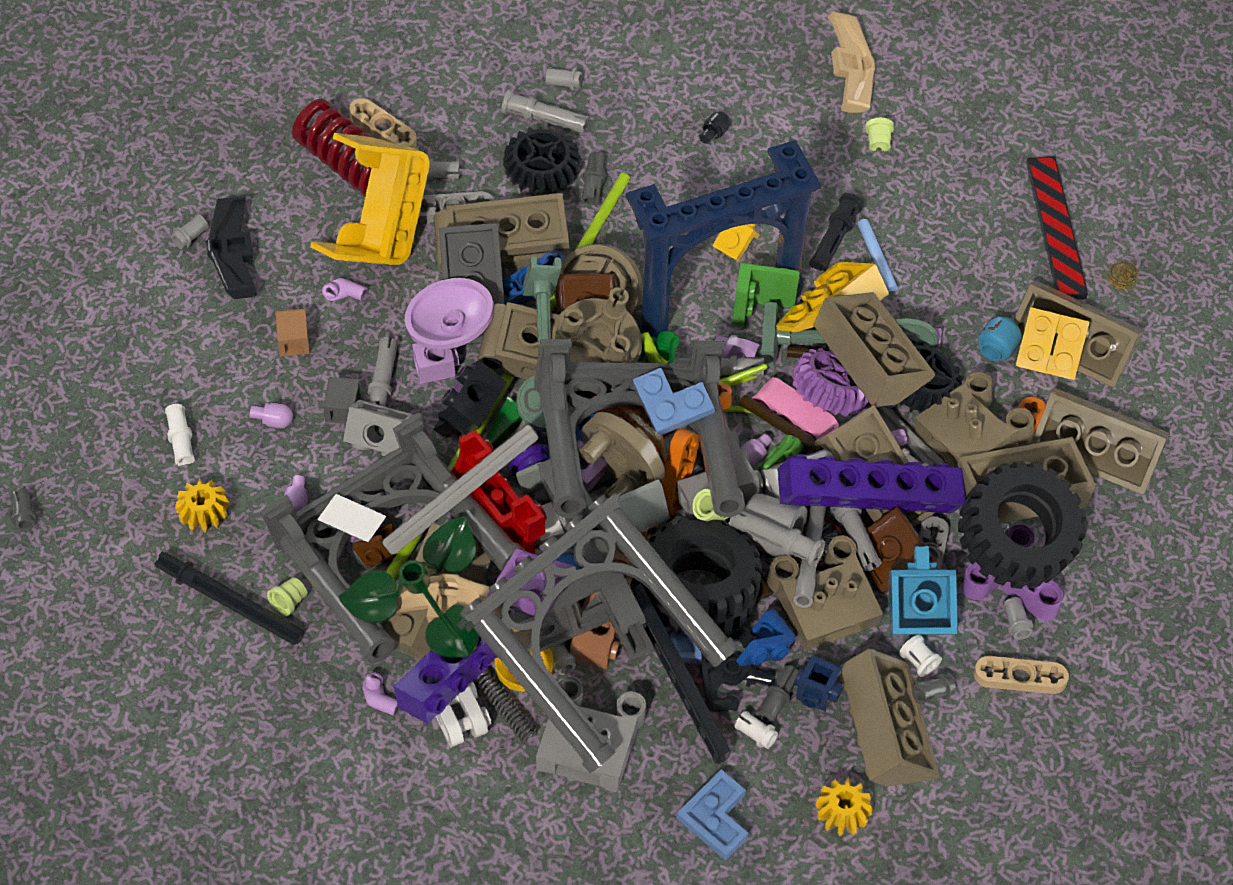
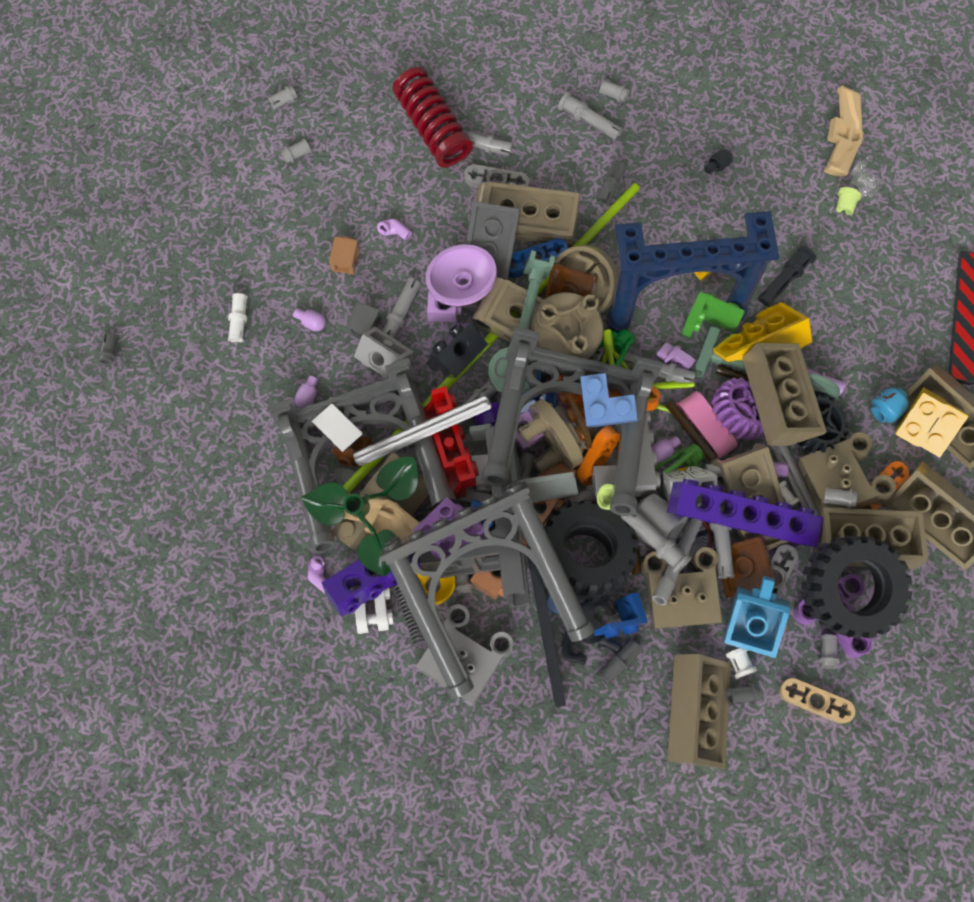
camera: 20 degrees right, 15 degrees up
(152, 175) = (282, 97): none -> light grey pin
(194, 513) = (240, 386): yellow gear -> none
(229, 598) = (233, 463): black axle -> none
(231, 248) = (321, 172): black plate -> none
(287, 596) = (275, 473): yellowish green piece -> none
(377, 117) = (464, 89): tan beam -> none
(389, 204) = (445, 172): yellow windscreen -> none
(505, 423) = (477, 376): green piece -> none
(540, 167) = (579, 150): black gear -> none
(708, 817) = (533, 750): medium blue plate -> none
(757, 730) = (594, 689): white pin -> none
(818, 684) = (659, 659): dark blue brick -> none
(843, 818) = (632, 772): yellow gear -> none
(877, 255) = (813, 304): light blue bar -> none
(896, 110) = (866, 182): none -> clear bracket
(974, 442) = (840, 497): none -> light grey pin

